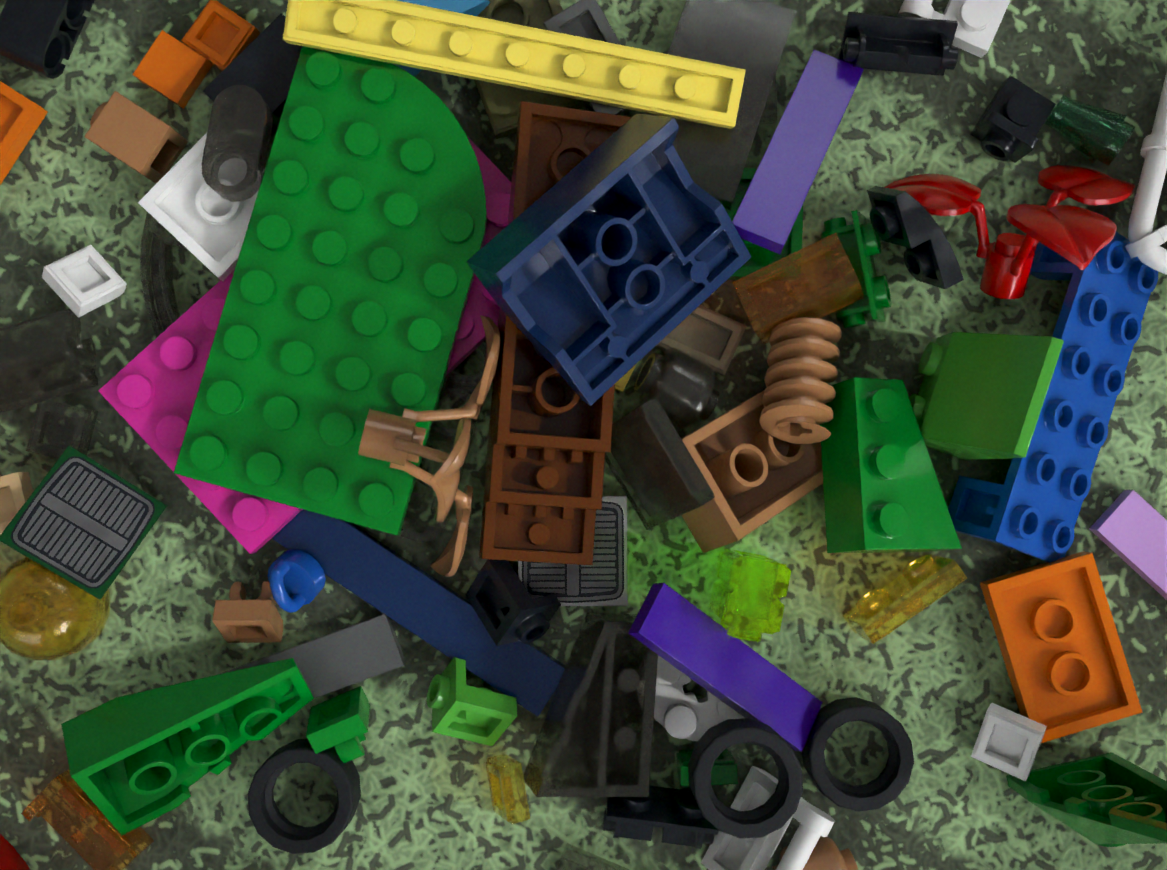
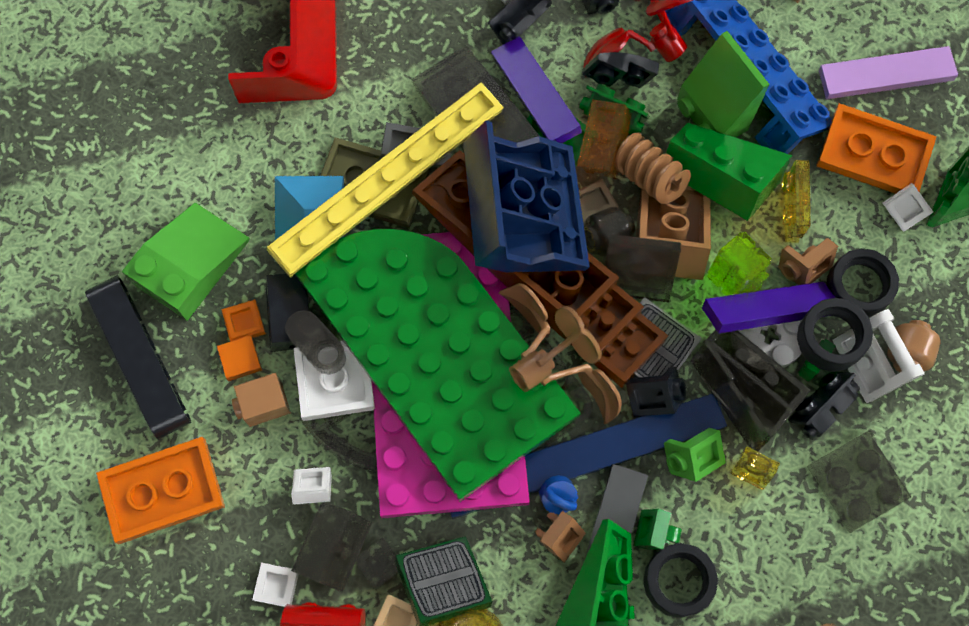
camera: 50 degrees left, 15 degrees down
(829, 672) = (809, 265): none -> medium nougat bracket

